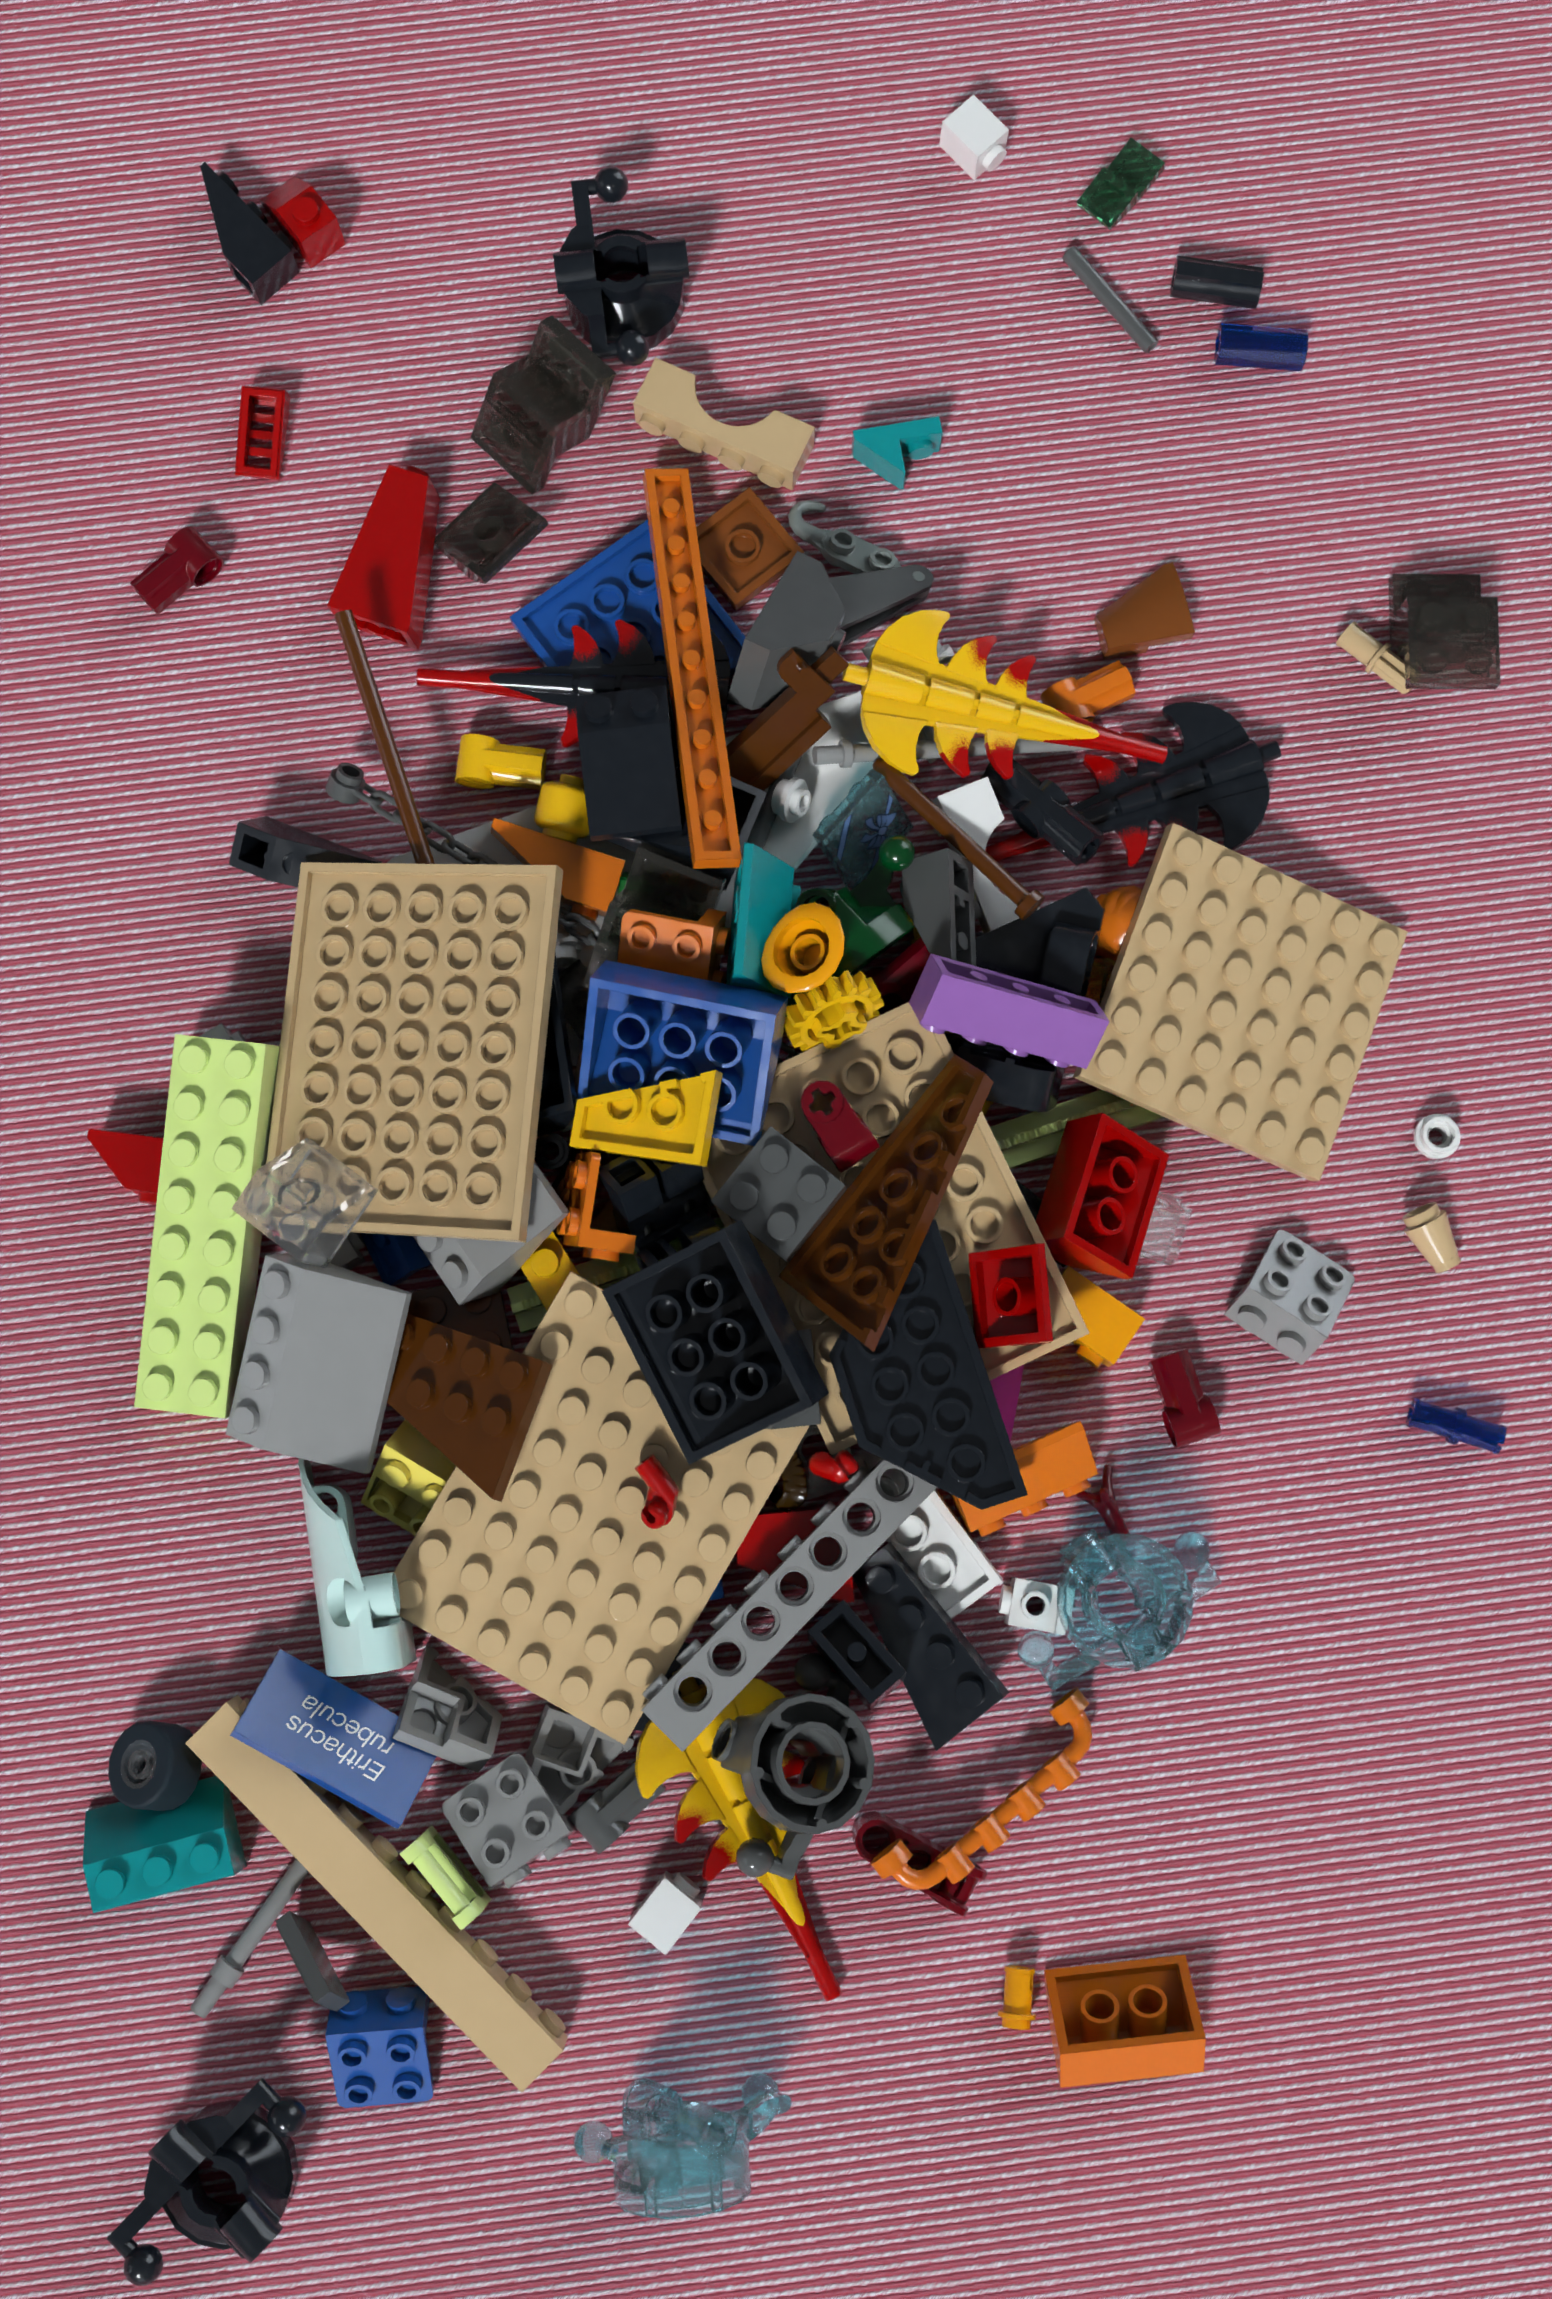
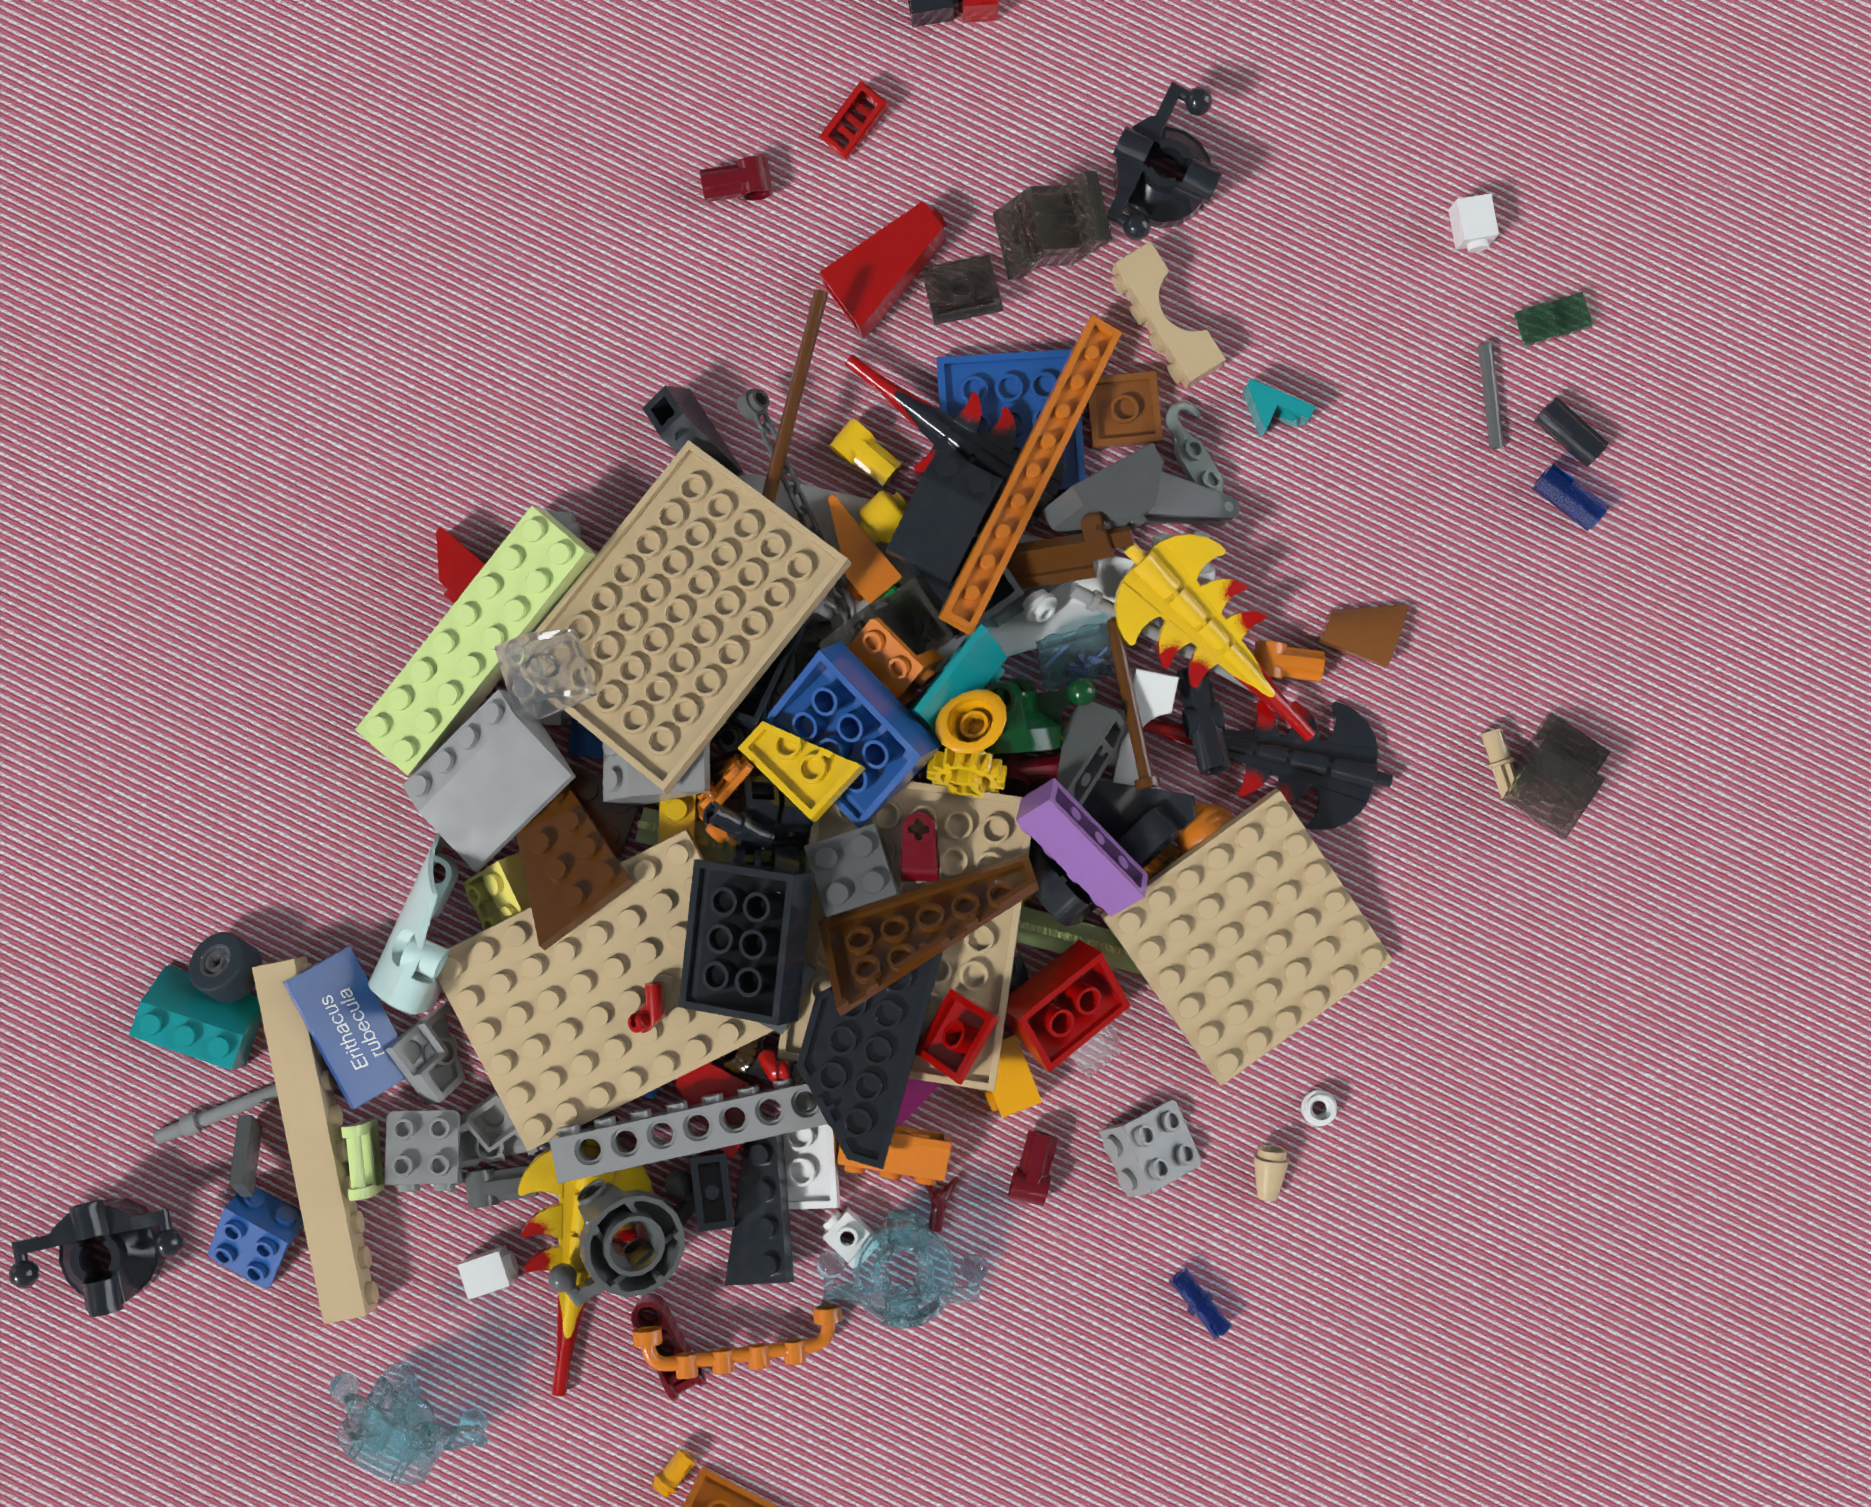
camera: 30 degrees right, 5 degrees up
(625, 1225) = (738, 825): none -> black pin

